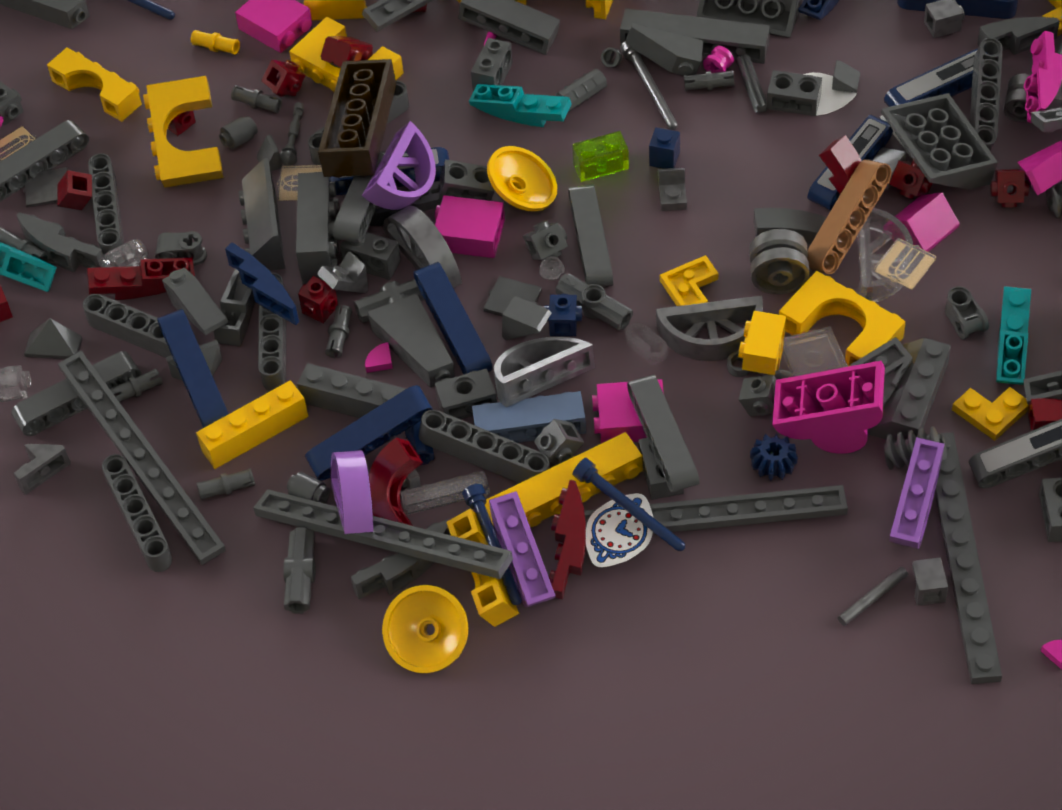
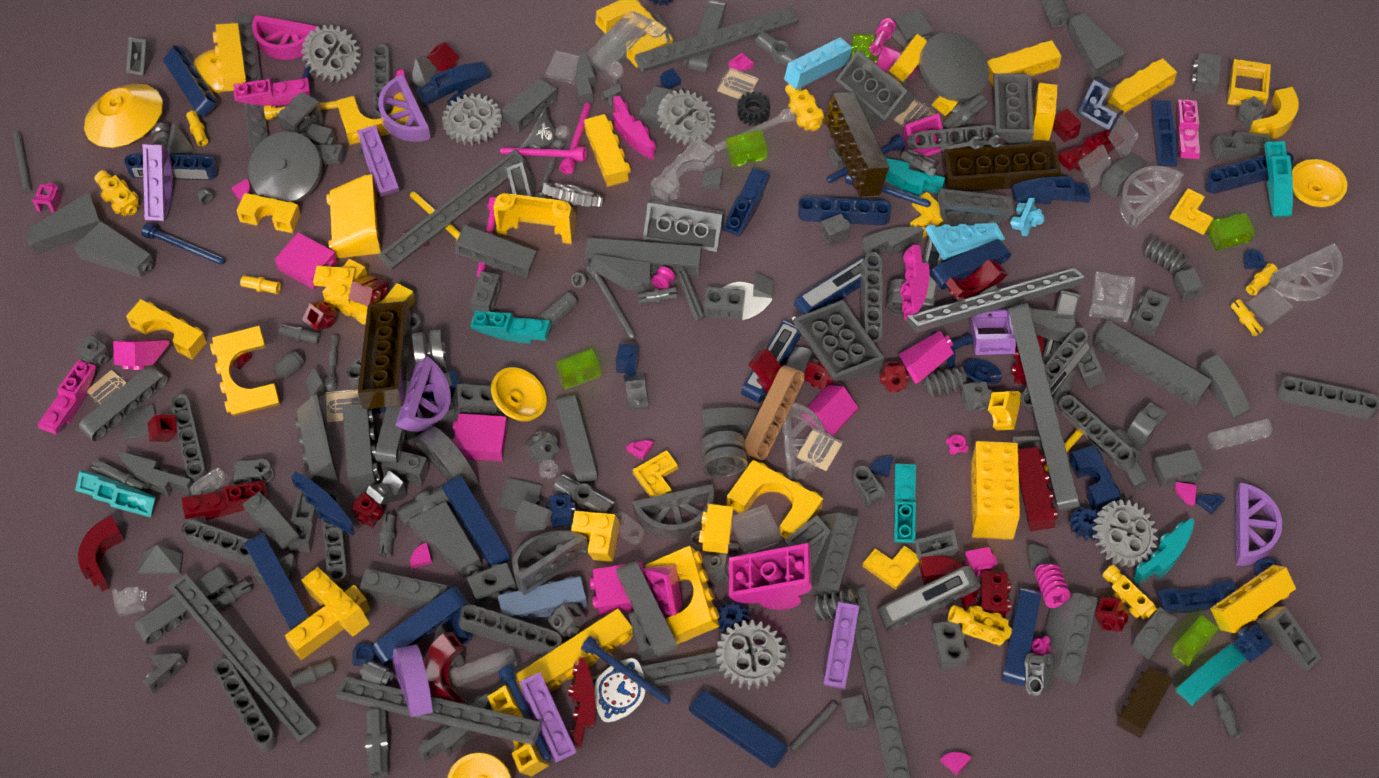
camera: 10 degrees left, 5 degrees up
(55, 104) = (138, 353): none -> dark pink slope
(275, 405) = (337, 601): none -> yellow arch
(291, 465) = (362, 654): none -> dark blue tile
(309, 38) = (338, 279): none -> yellow plate
(422, 118) = (434, 349): none -> flat silver wheel
(612, 343) = (601, 531): none -> yellow brick
(671, 253) = (640, 448): none -> dark pink tile
(689, 409) = (665, 588): none -> dark pink slope
(733, 445) = (700, 614): none -> yellow arch
(772, 589) = (738, 729): none -> dark blue beam
(822, 495) = (769, 651): none -> light grey gear
(987, 292) = (882, 466): none -> dark blue tile

